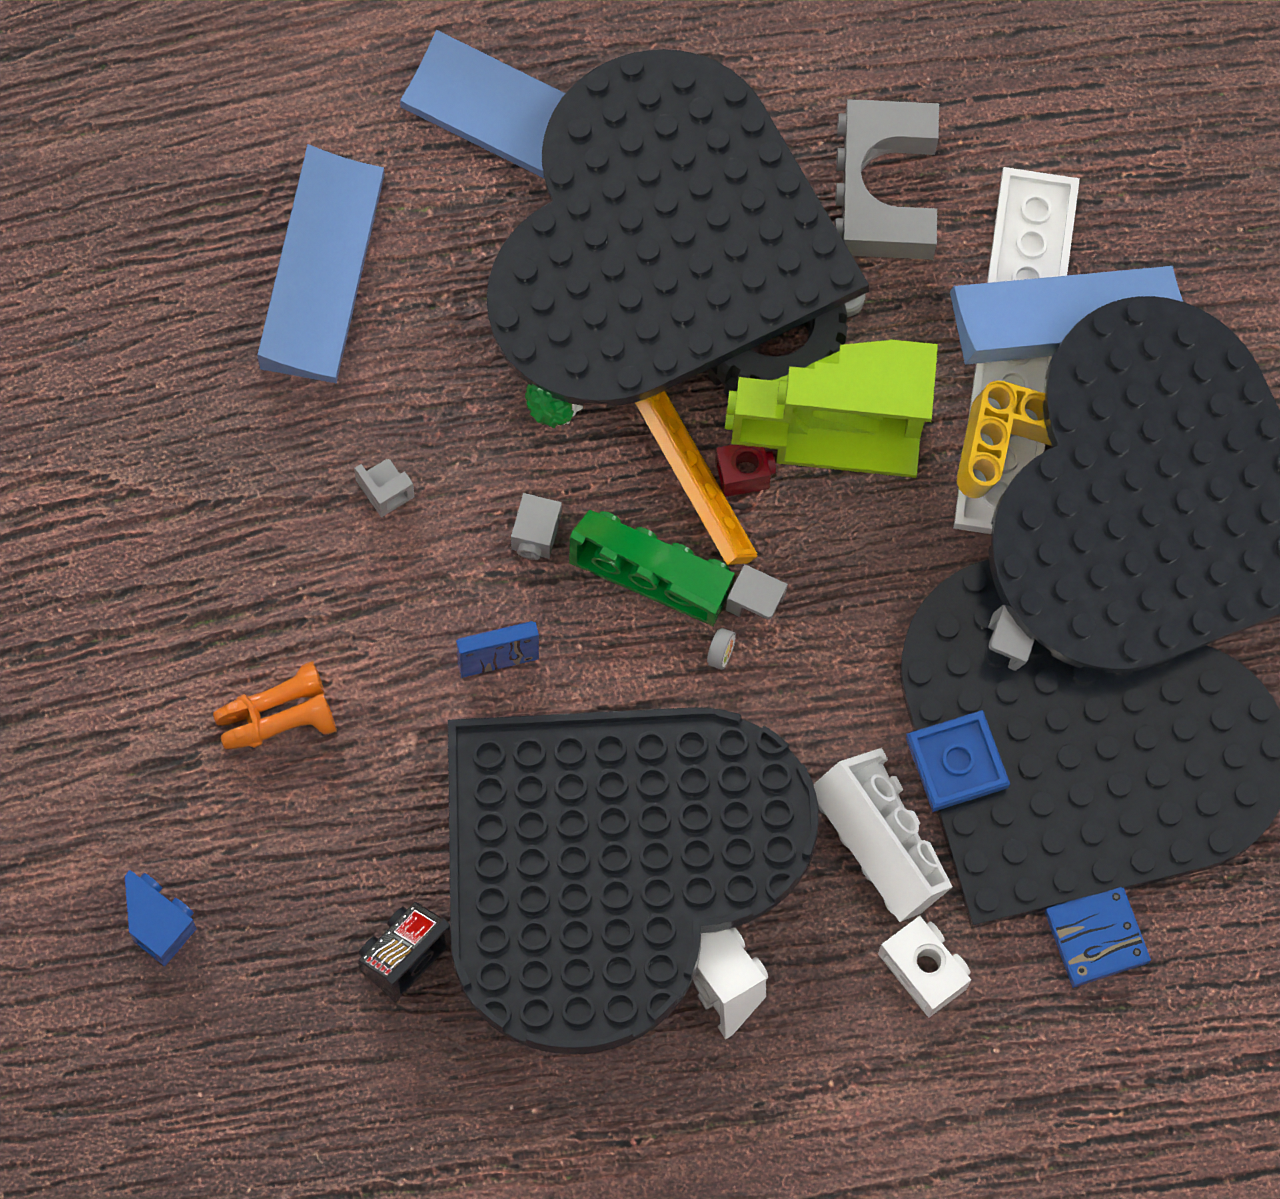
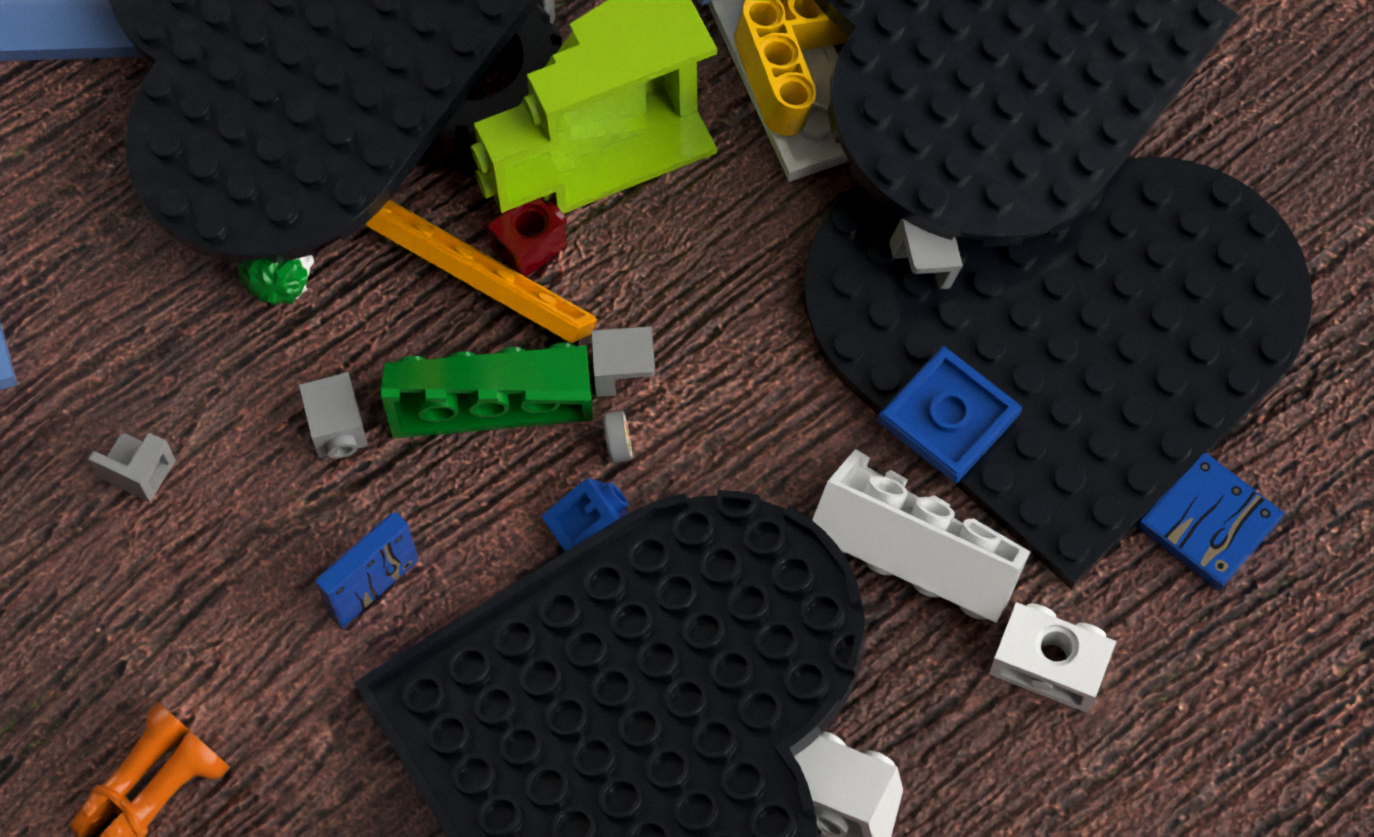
camera: 25 degrees left, 5 degrees down
(668, 689) = (585, 512): none -> blue bracket

